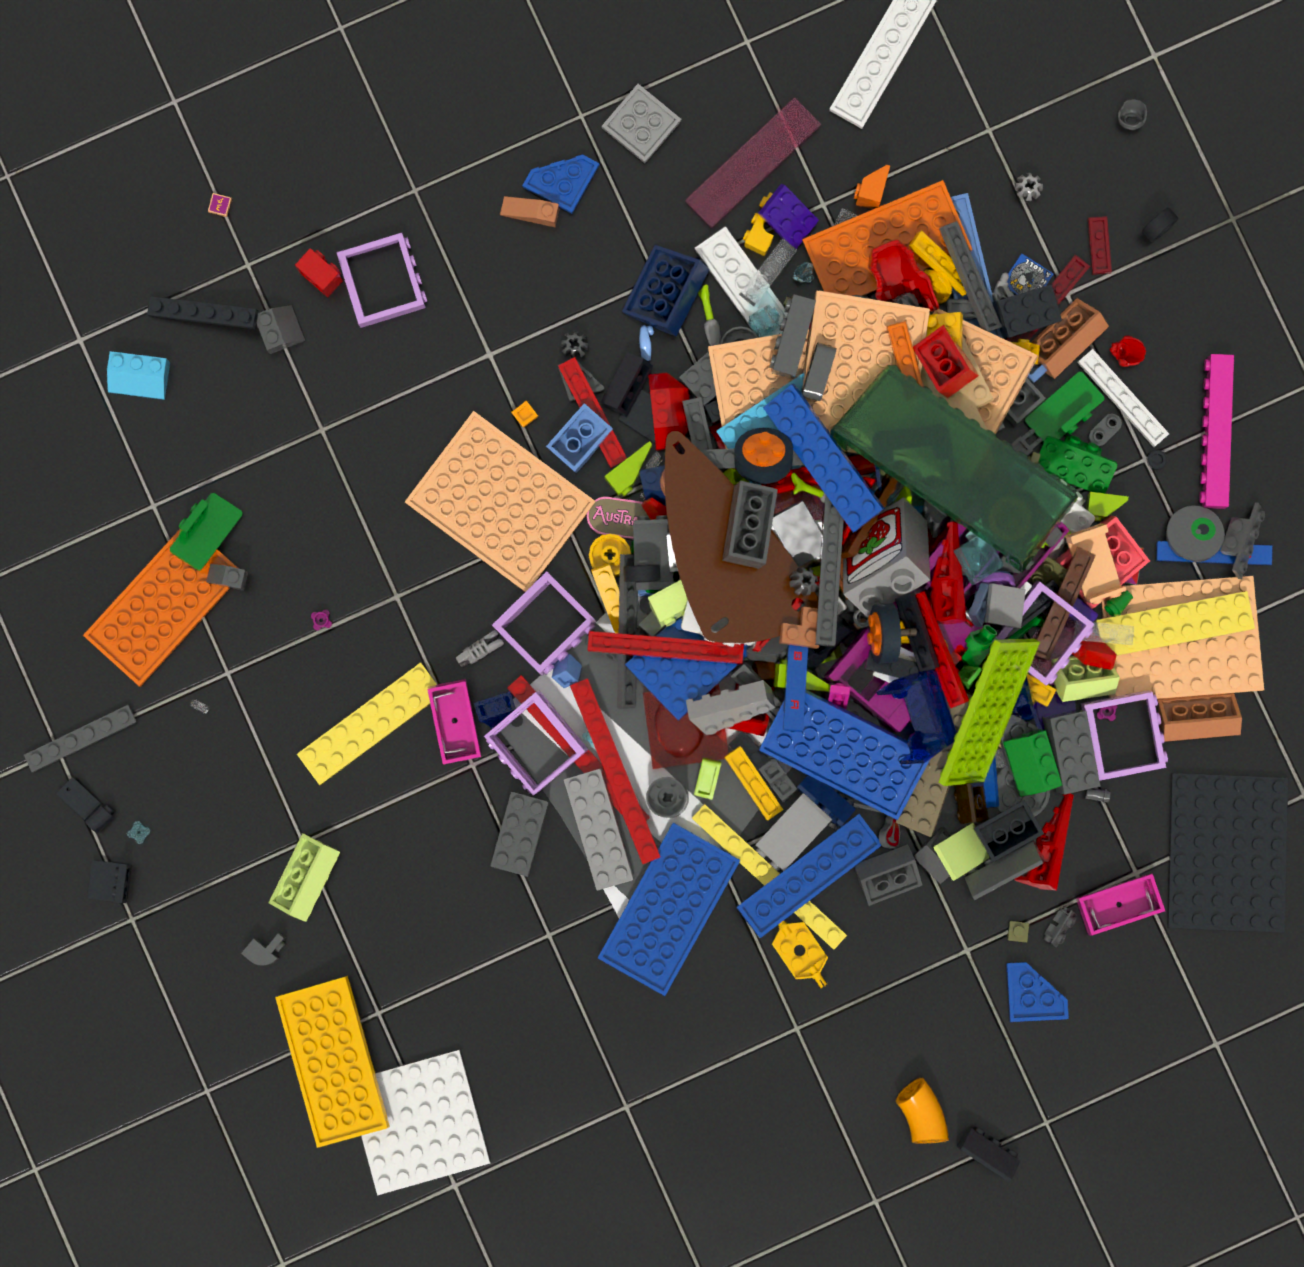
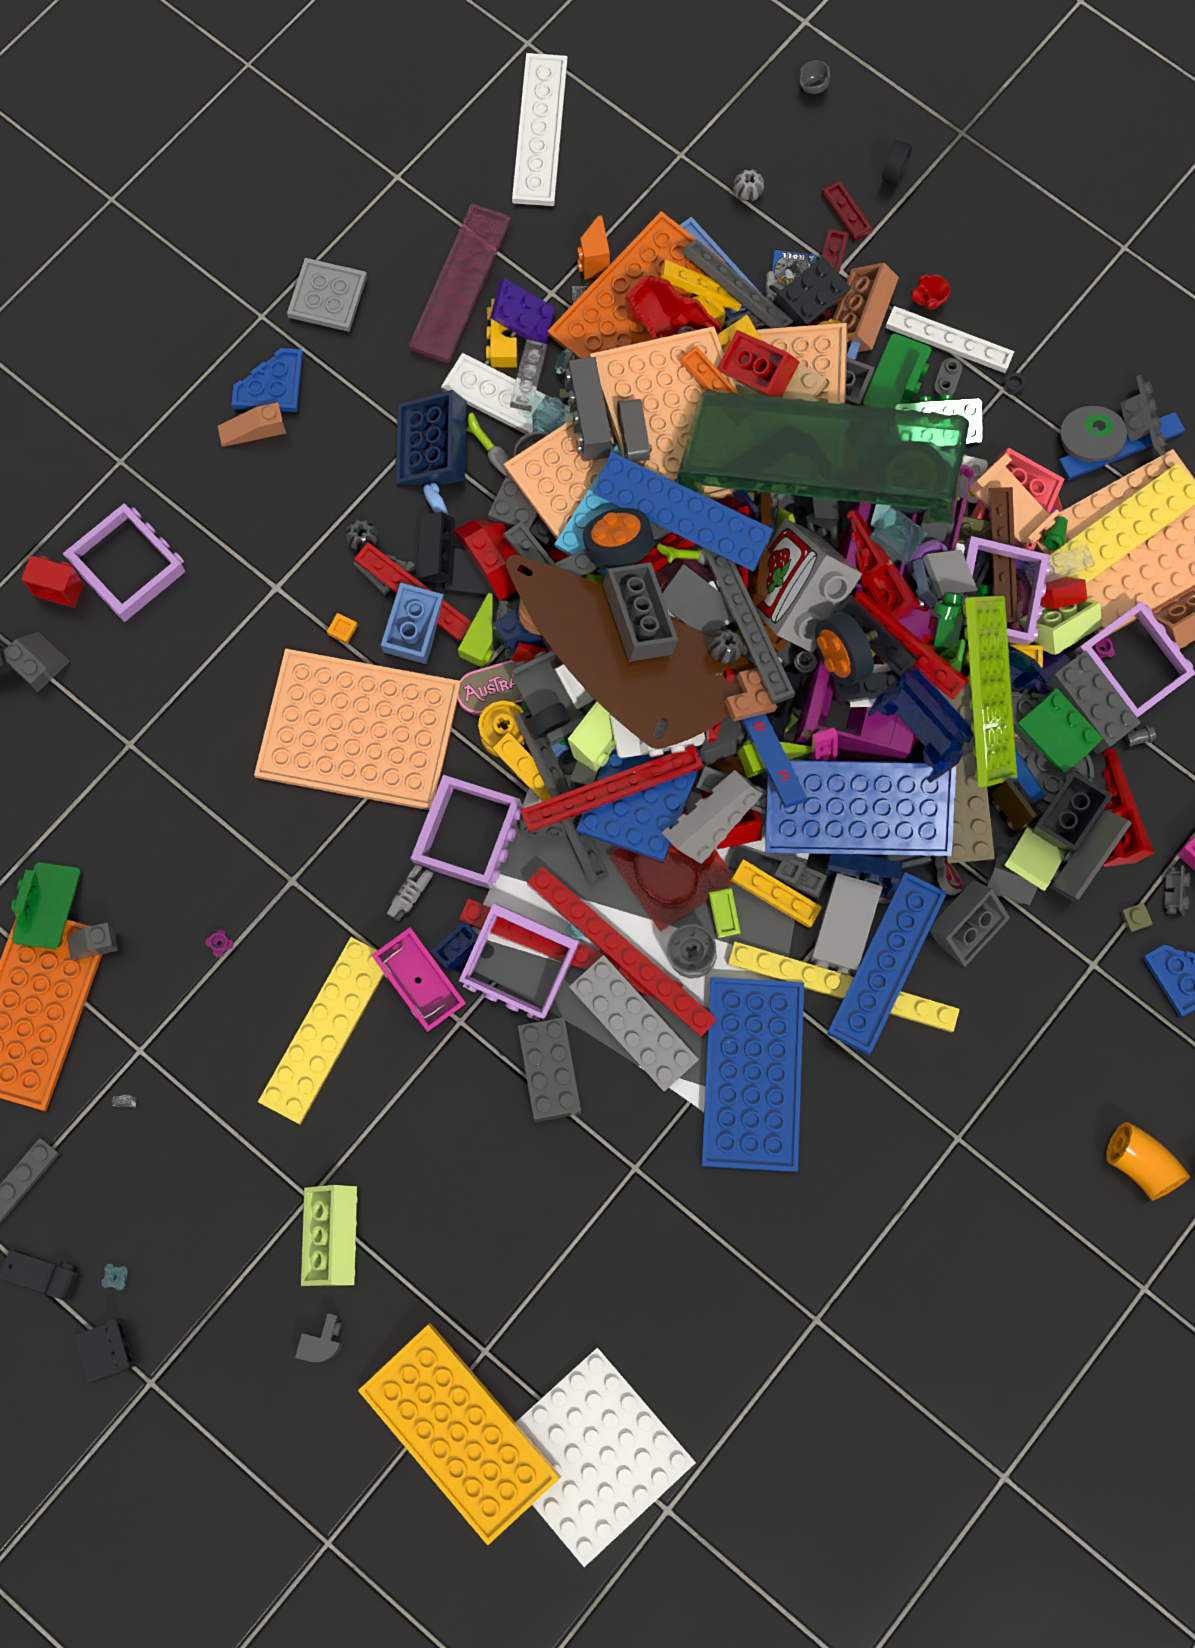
camera: 30 degrees left, 10 degrees down
(567, 671) = (516, 871): medium blue panel -> none
(804, 966) = (936, 1056): yellow plate -> none
(1102, 504) = (987, 445): lime slope -> none
(1217, 431) = (1060, 329): dark pink brick -> none

